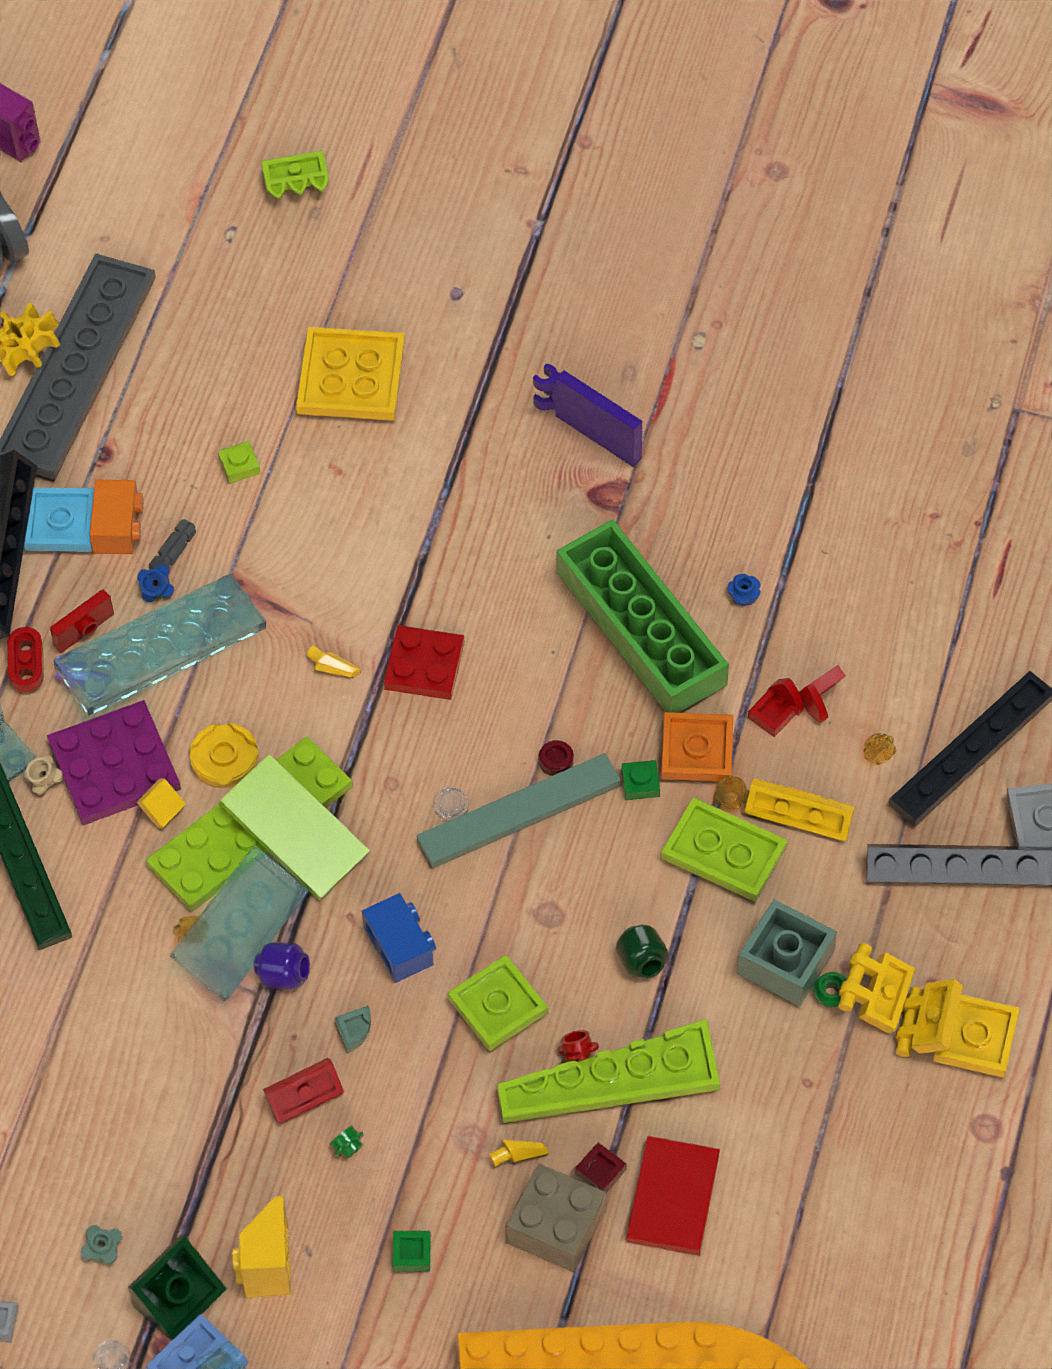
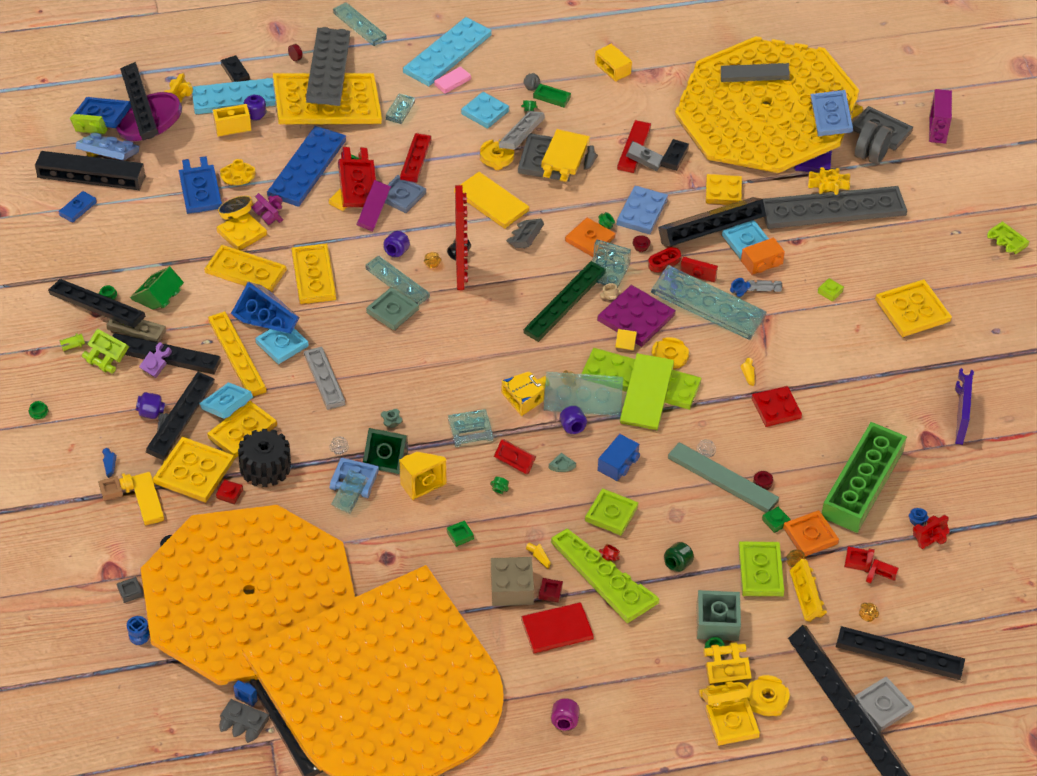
camera: 60 degrees right, 10 degrees down
(176, 1009) = (524, 391): none -> yellow torso
(188, 1126) = (470, 422): none -> clear light blue plate
(789, 583) = (932, 532): none -> red hips
(848, 1263) = (565, 714): none -> magenta head
(956, 944) = (762, 705): none -> yellow plate

